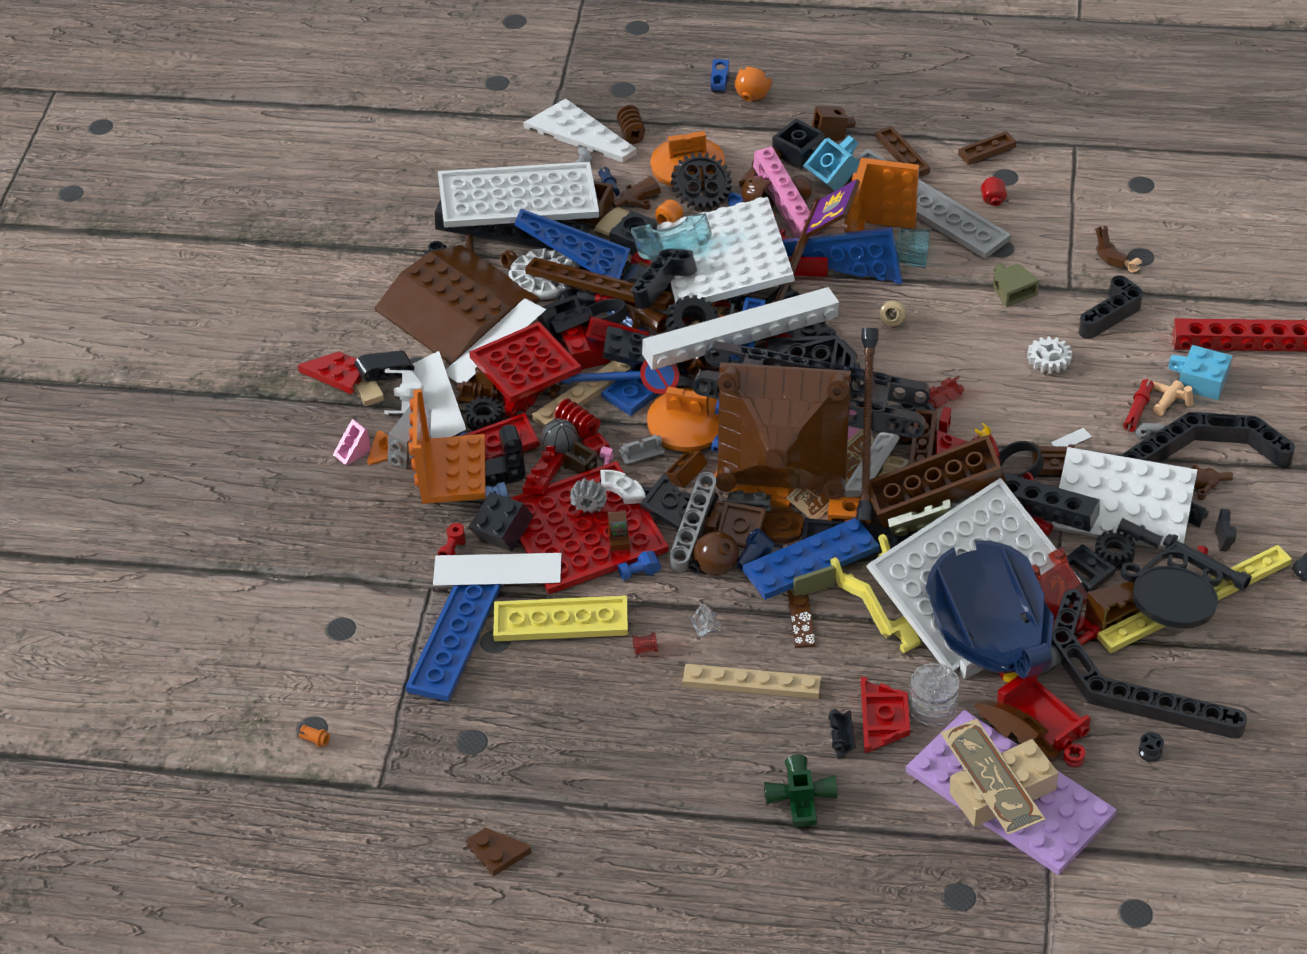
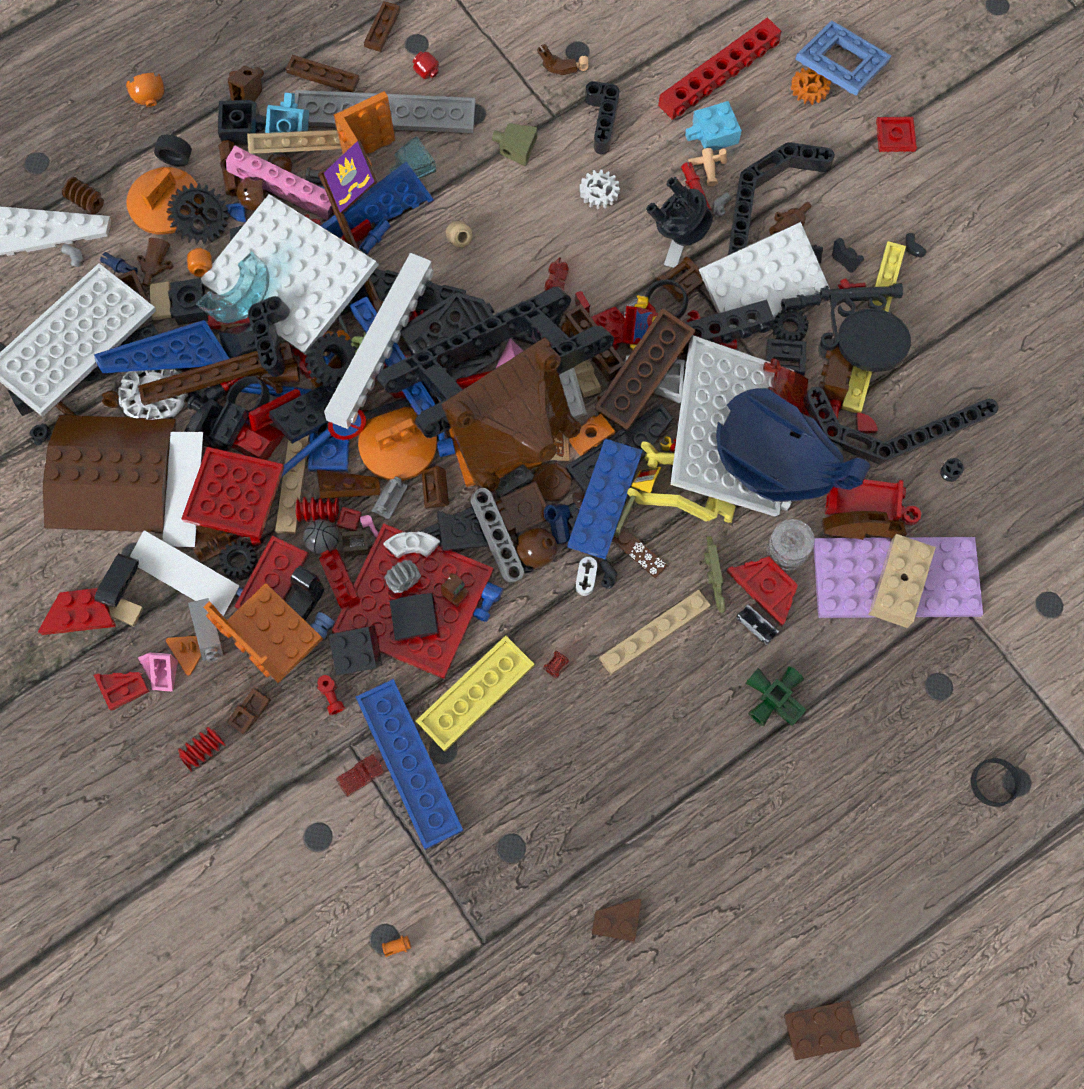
camera: 45 degrees left, 25 degrees up
(313, 436) = (121, 688): none -> red wing
(323, 508) = (200, 748): none -> red piece
(378, 515) = (250, 710): none -> reddish brown slope
(405, 391) = (160, 587): white piece -> none
(411, 611) = (360, 775): none -> clear red slope
(497, 569) = (389, 691): white sticker -> none
(569, 531) = (414, 616): none -> black slope
(617, 418) = (339, 484): none -> reddish brown wing
(704, 620) = (578, 610): clear tile -> none
(719, 77) = (108, 96): blue leg -> none
(727, 132) = (172, 150): none -> black tyre
(737, 604) = (591, 576): none -> white beam
(753, 620) = (610, 574): none -> black arm
(813, 166) = (293, 141): none -> tan plate
(824, 277) = (374, 236): none -> blue pin
(846, 674) = (714, 575): none -> olive plate
(857, 568) = (646, 479): none -> slope
(869, 339) = (537, 300): reddish brown hose -> none
(913, 521) = (660, 408): olive wing -> none
(992, 776) = (902, 586): sticker -> none
(1093, 402) = (683, 215): none -> black piece
(1106, 663) = (865, 424): none -> red tile

